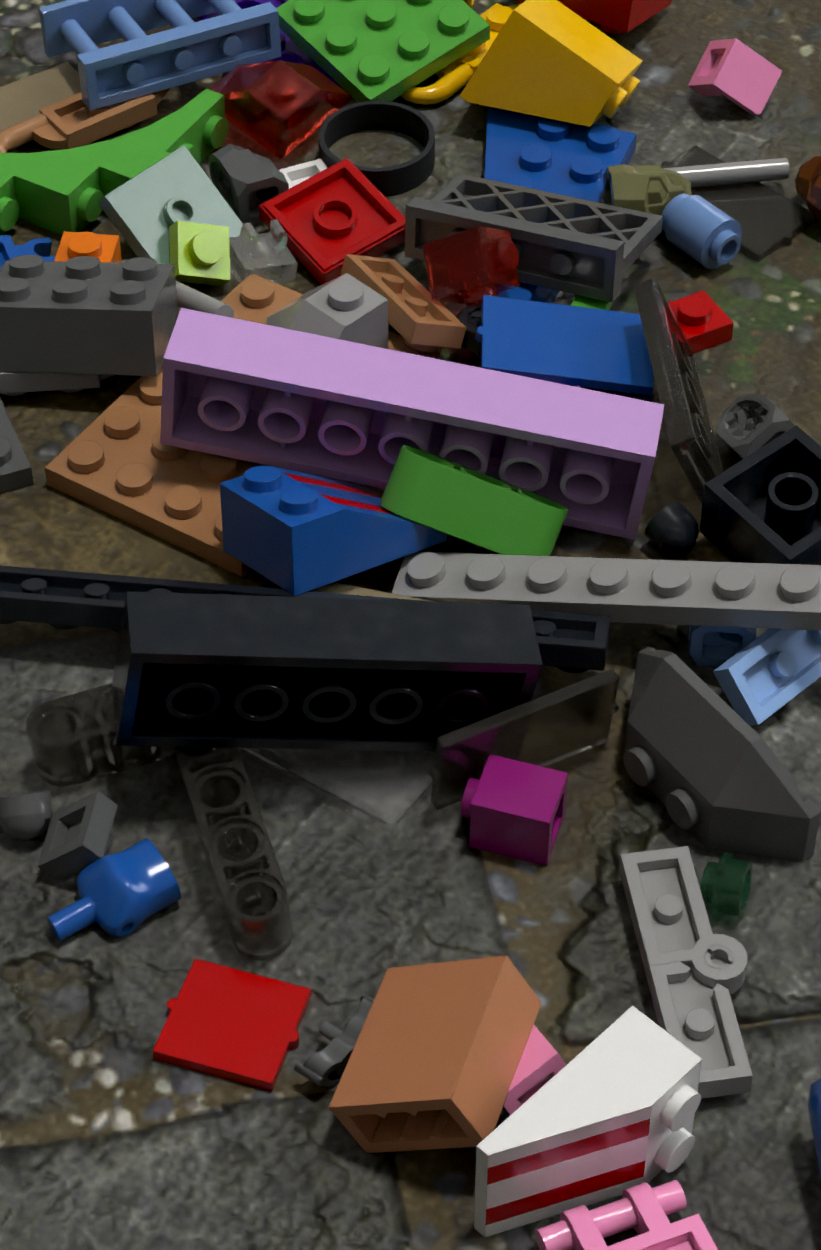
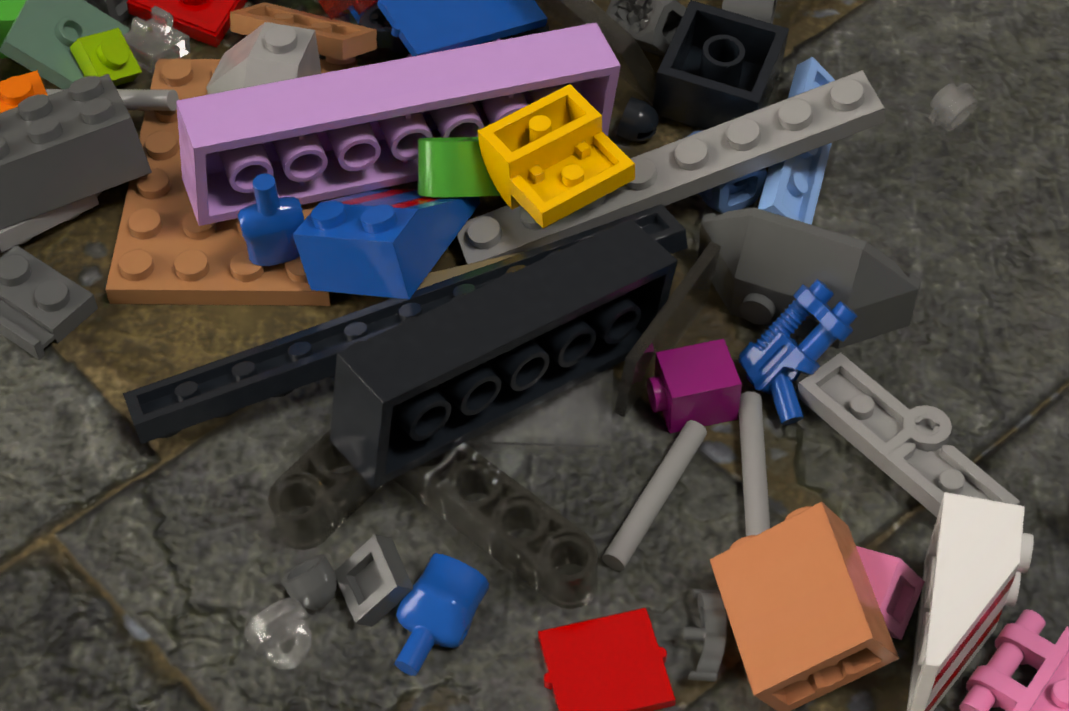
camera: 30 degrees left, 5 degrees up
(211, 462) = (270, 224): none -> blue piece
(403, 893) = (654, 496): none -> light grey bar
(523, 518) = (553, 157): none -> yellow brick
(530, 901) = (753, 464): none -> light grey bar
(621, 821) = (779, 359): none -> blue piece
(727, 885) = (885, 366): clear green plate -> none

